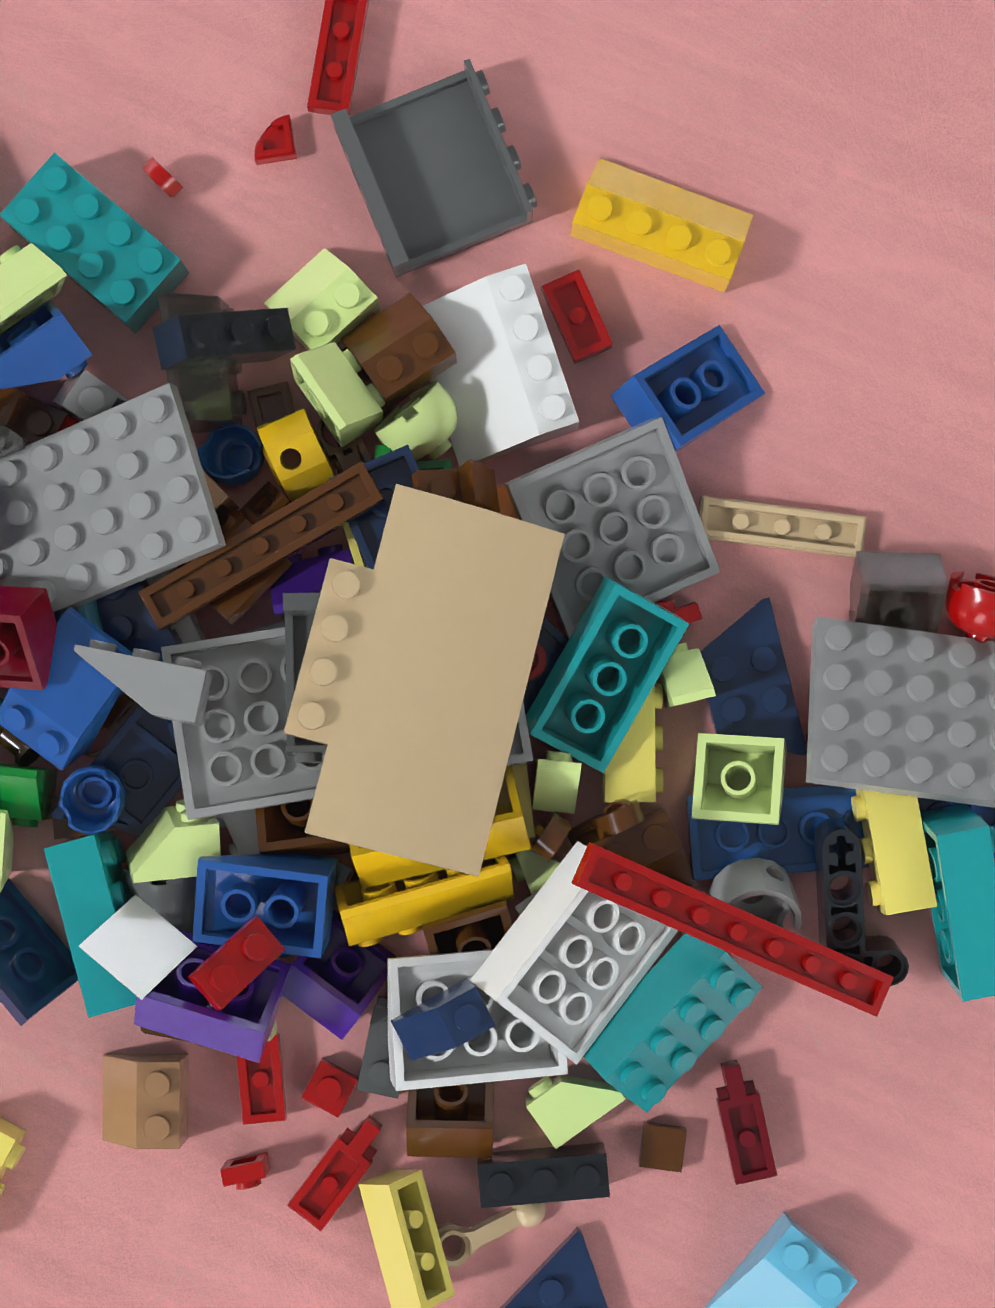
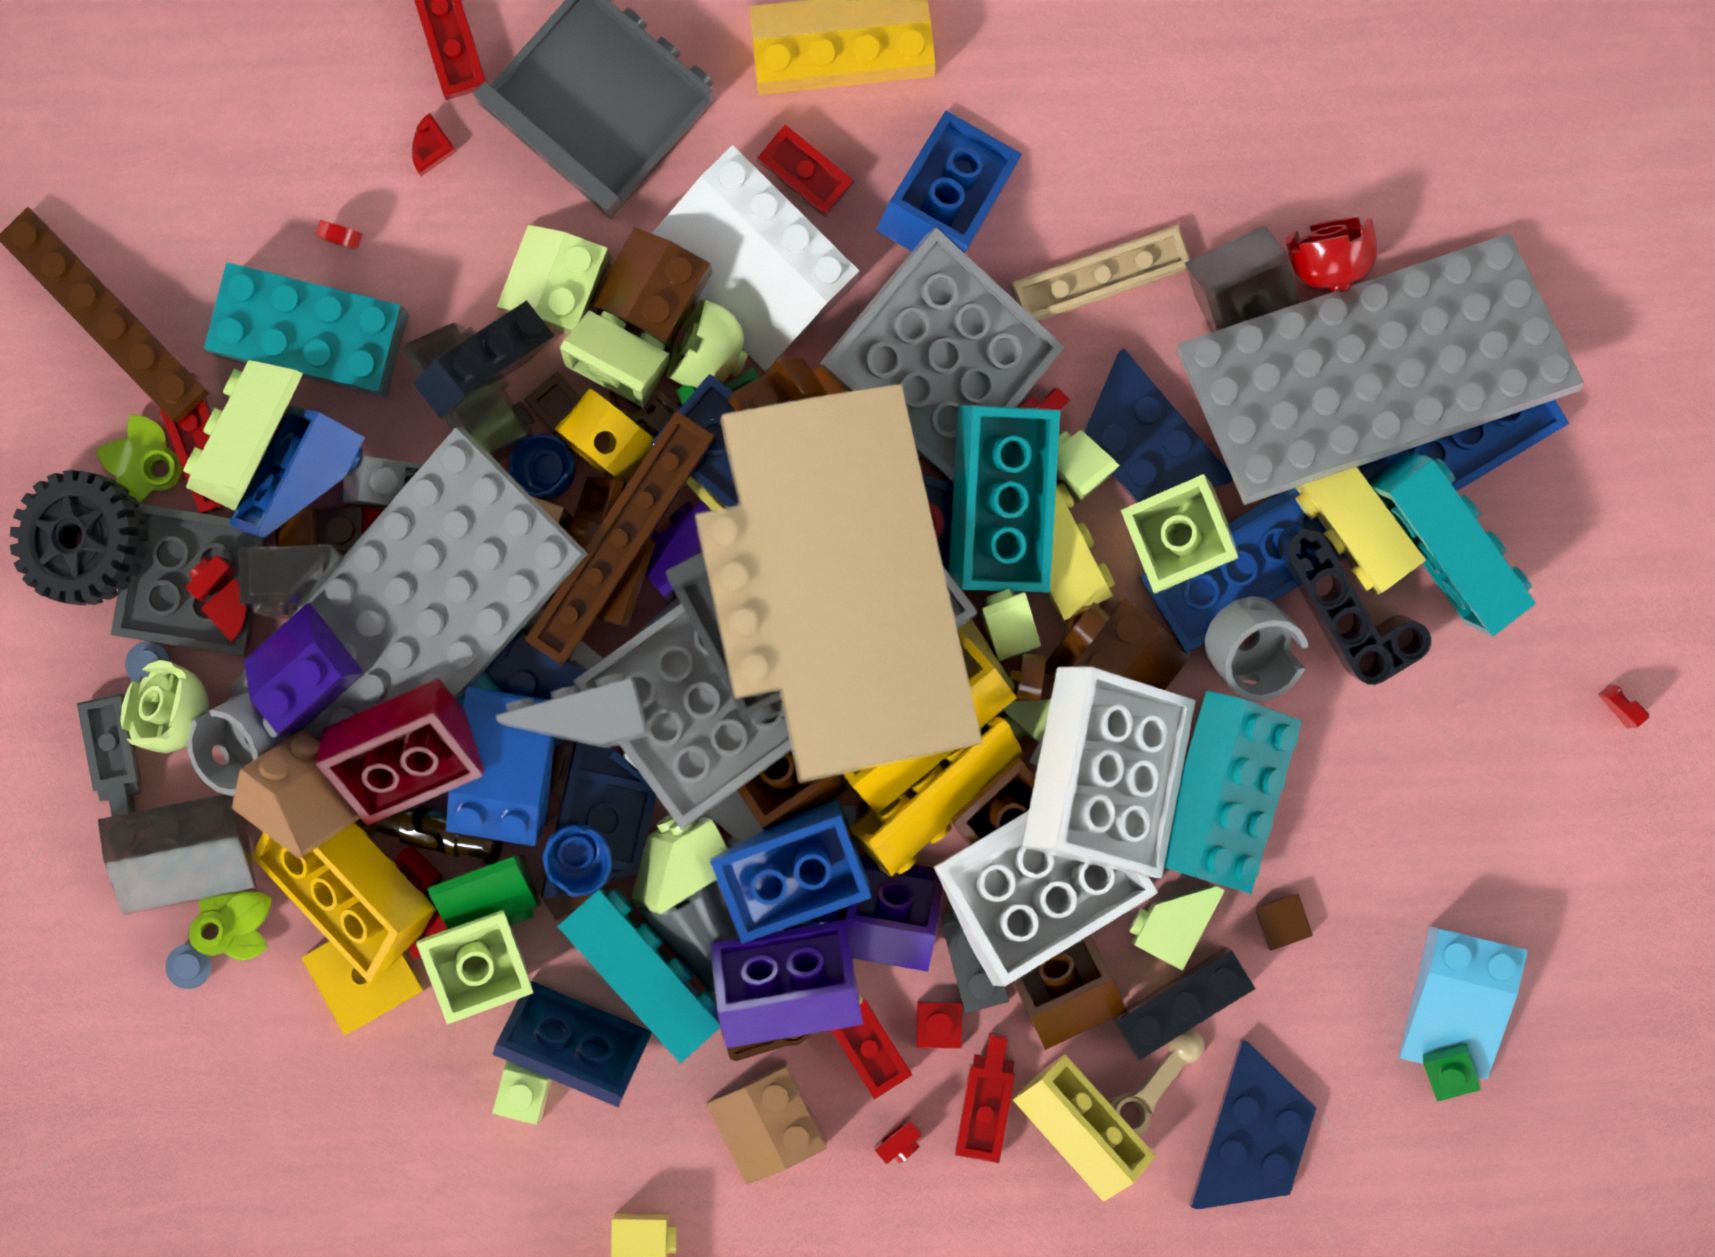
camera: 25 degrees left, 0 degrees up
(138, 946) = (694, 971): white sticker -> none
(236, 963) = (796, 938): red plate -> none
(443, 1021) = (1016, 897): dark blue slope -> none
(731, 929) = (1244, 675): red plate -> none
(744, 1127) = (1351, 863): dark red hinge -> none

